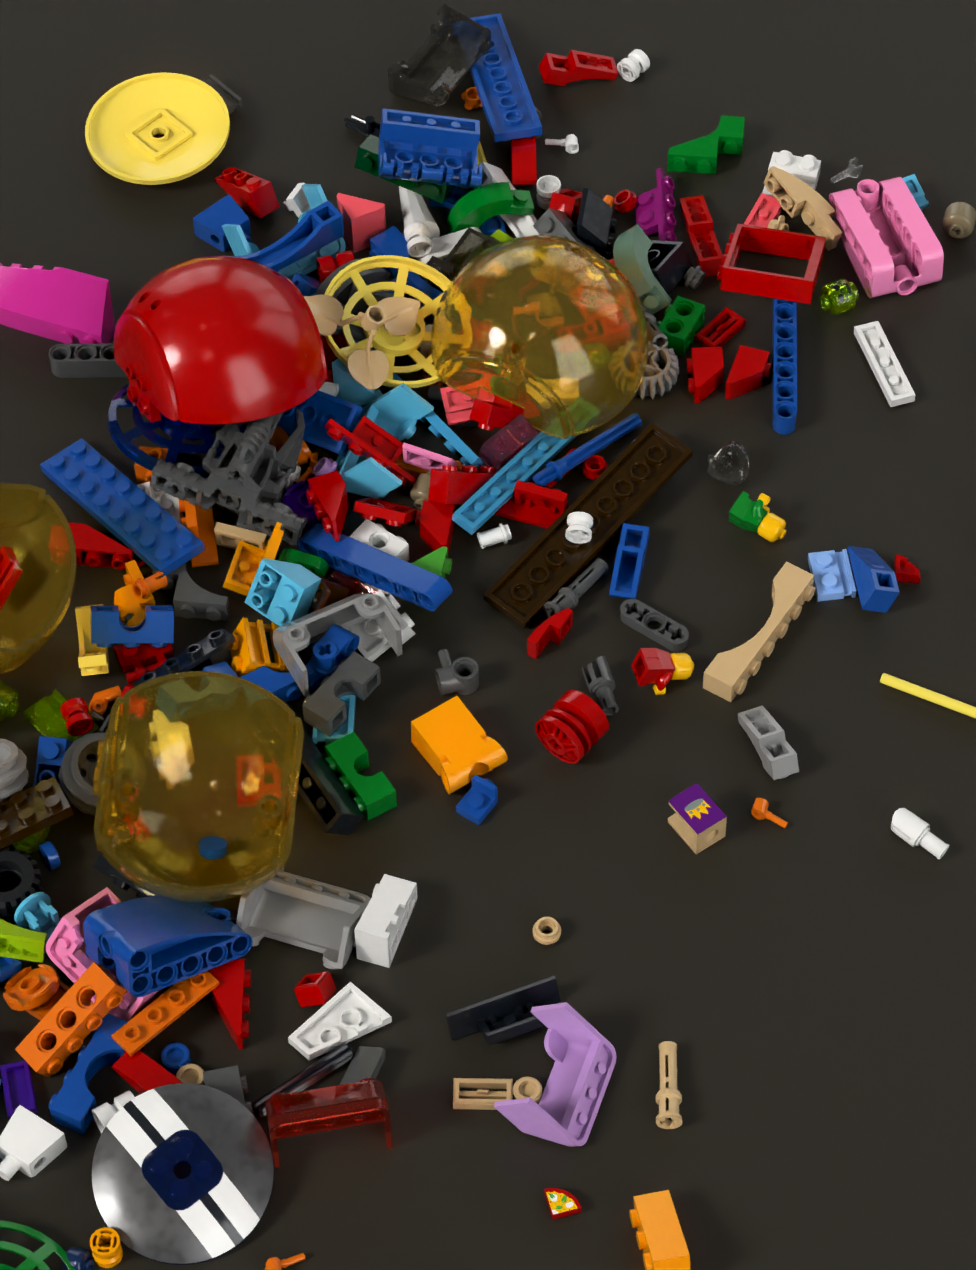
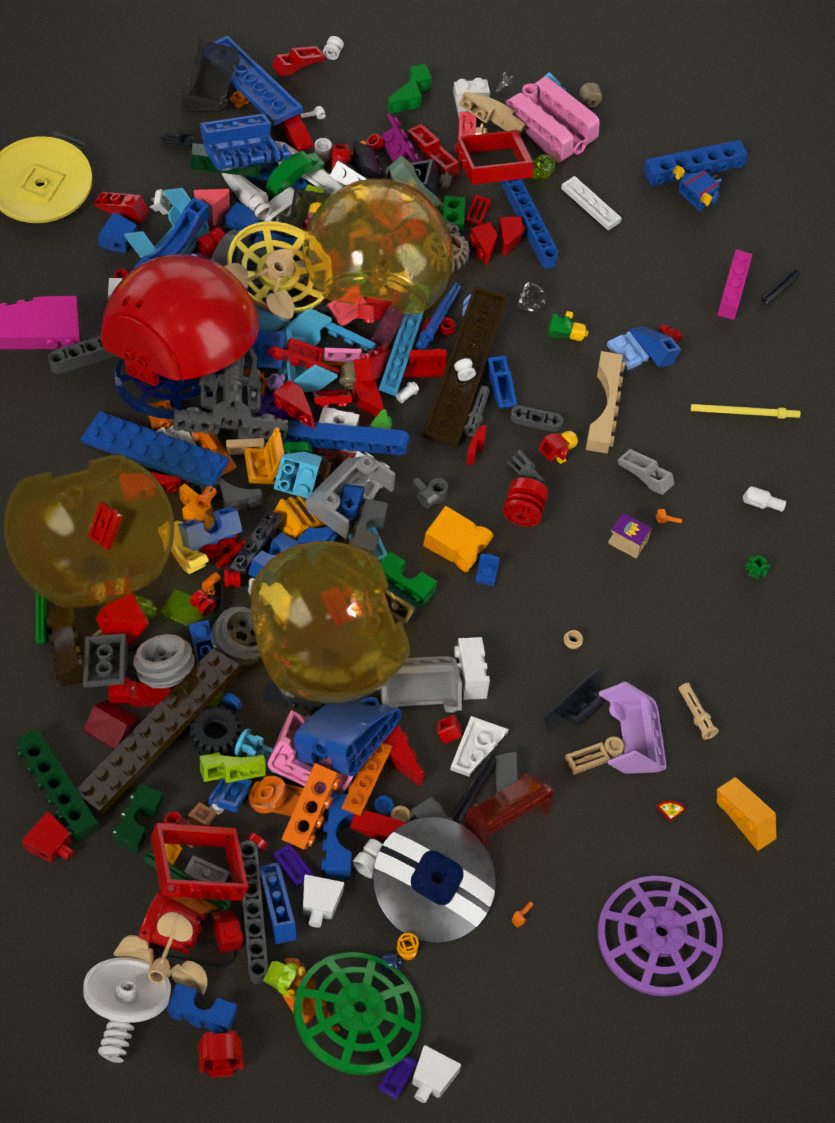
camera: 30 degrees left, 5 degrees up
(212, 847) = (338, 659): blue tile -> none
(859, 921) = (757, 567): none -> green gear

